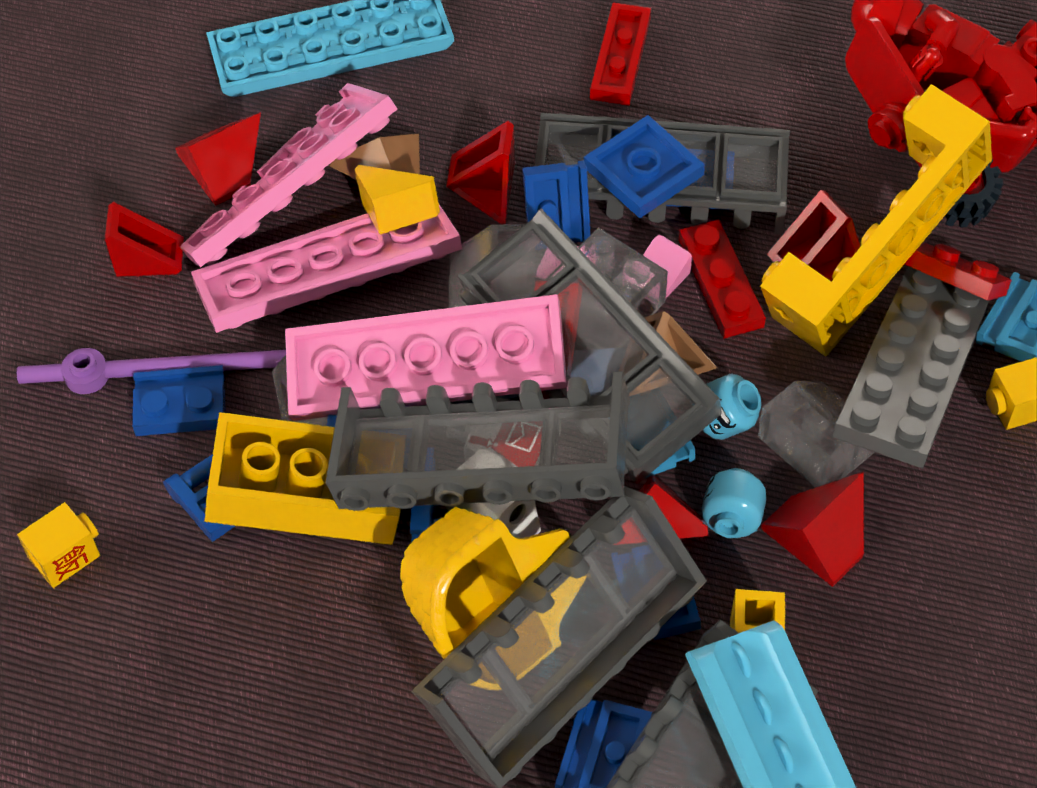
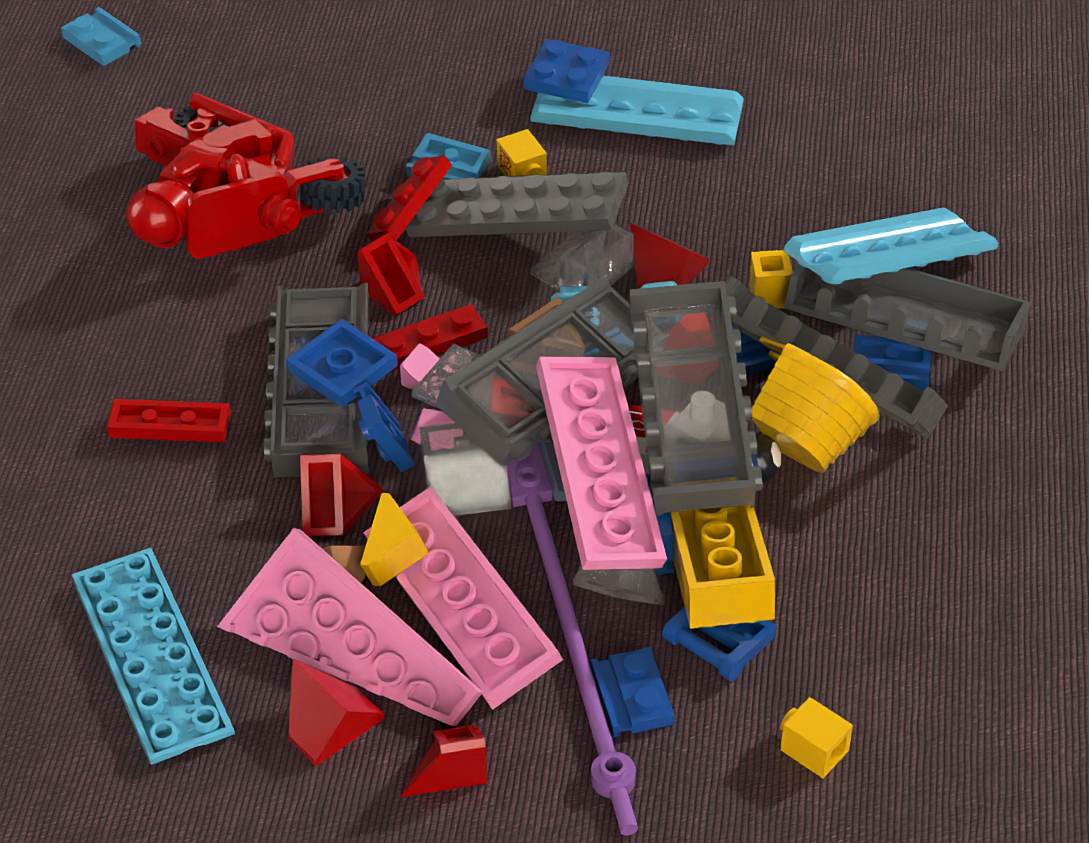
camera: 100 degrees left, 10 degrees down
(953, 152) = (353, 145): yellow plate -> none

